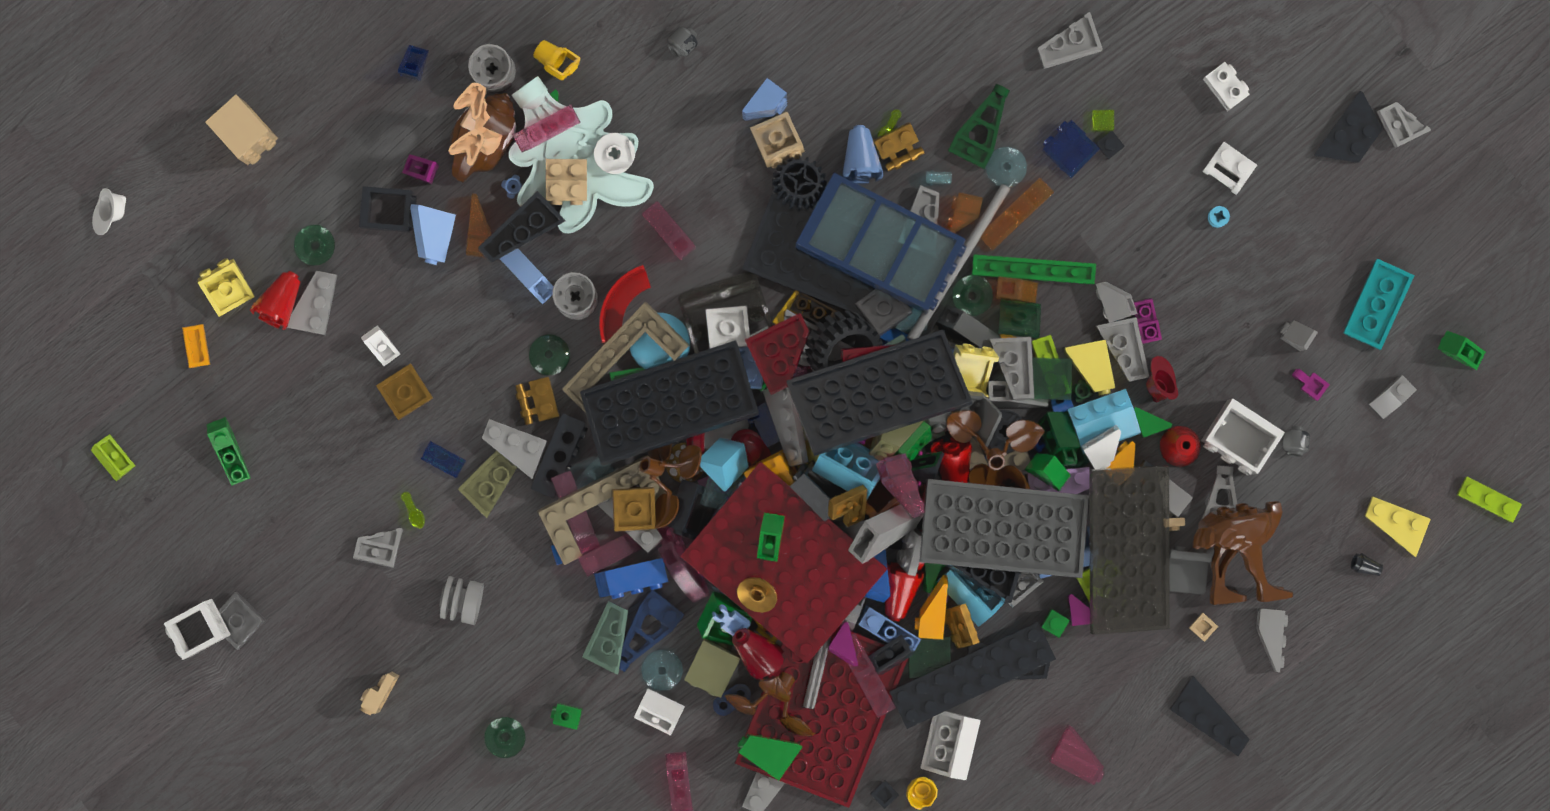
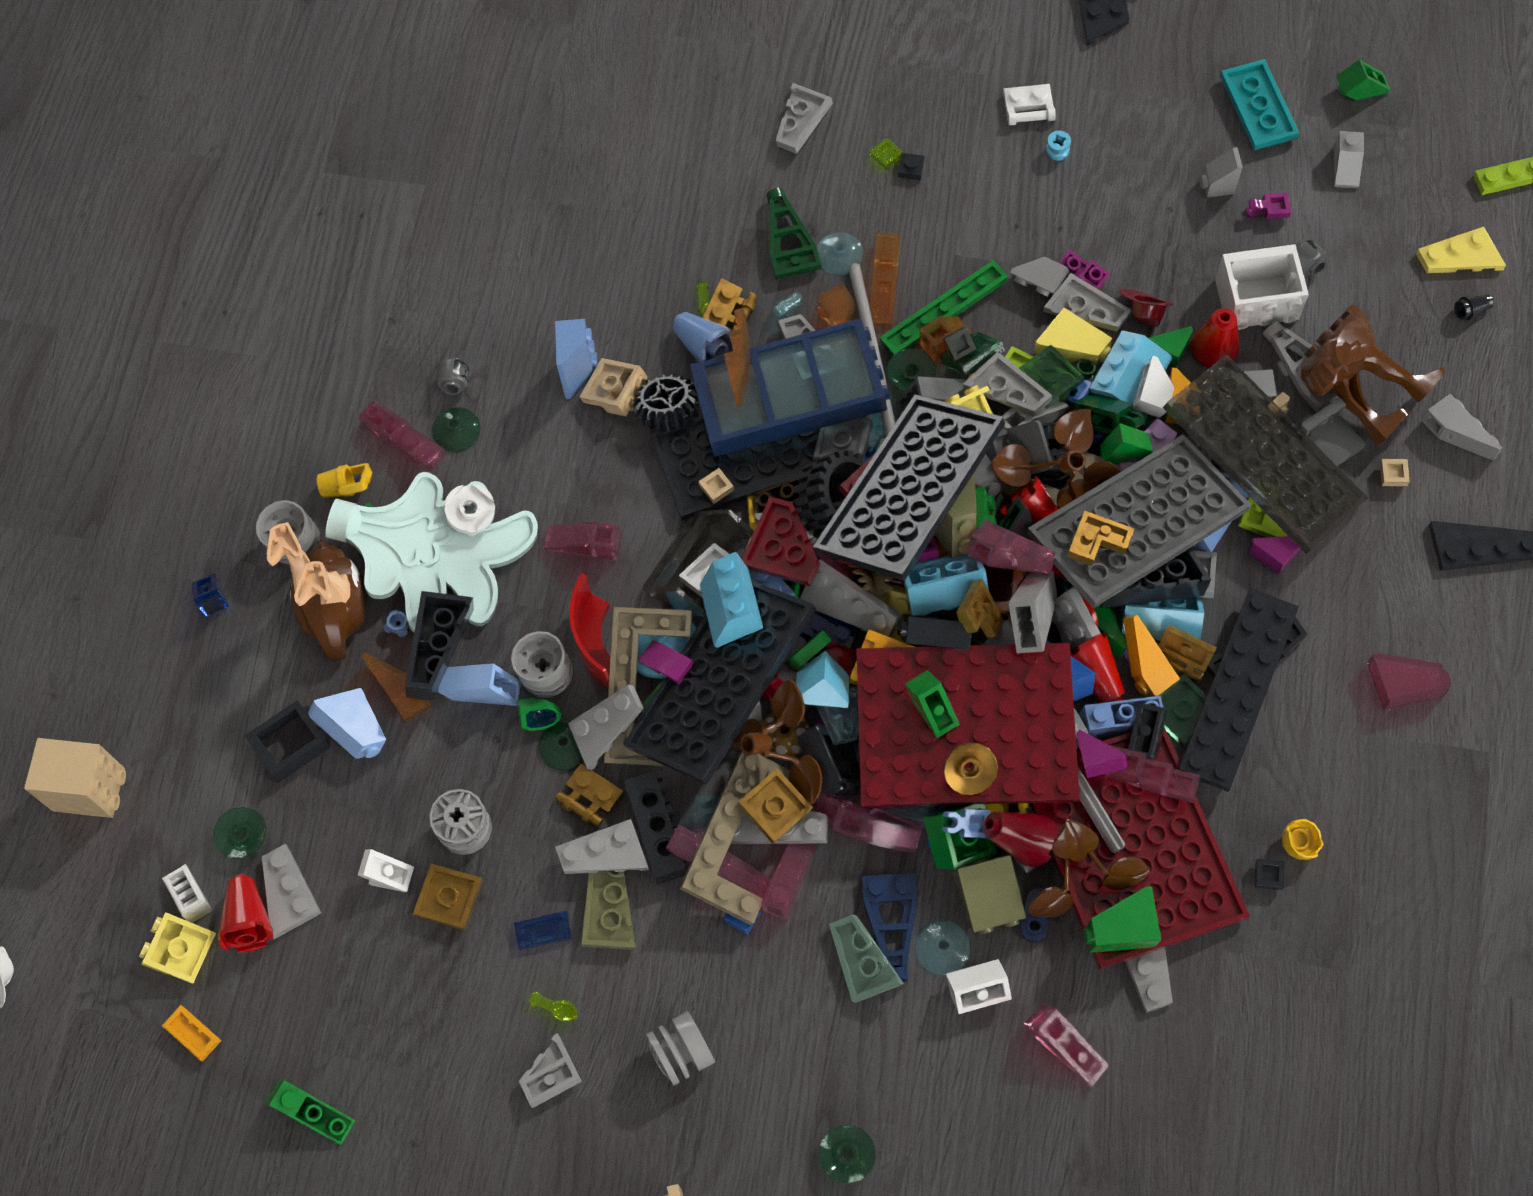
camera: 35 degrees left, 20 degrees down
(250, 271) = (194, 908): none -> white slope
(420, 168) = (293, 678): magenta slope -> none
(446, 366) = (470, 832): none -> light grey wheel
(546, 128) = (383, 536): clear pink slope -> none
(547, 323) = (537, 714): none -> green rock
(566, 181) = (444, 568): tan plate -> none
(566, 715) = (890, 1075): green brick -> none
(578, 367) = (603, 723): none -> light grey wing
(616, 57) = (401, 436): none -> clear pink slope
(631, 578) = (830, 881): blue wedge -> none
(647, 362) = (666, 661): none -> magenta slope
(658, 89) = (457, 438): none -> clear green dish
(716, 361) = (730, 600): none -> medium azure slope
(738, 432) = (807, 651): none -> green beam
(779, 269) = (716, 485): none -> tan plate
(860, 204) = (739, 360): none -> clear orange slope
(950, 745) = (1282, 772): white slope -> none
(963, 518) = (1097, 532): none -> pearl gold plate
(1013, 309) = (959, 343): none -> pearl dark grey plate
(1054, 623) = (1265, 577): green brick -> none
(1070, 148) = (879, 194): clear blue plate -> none
(1226, 86) = (963, 47): white brick -> none

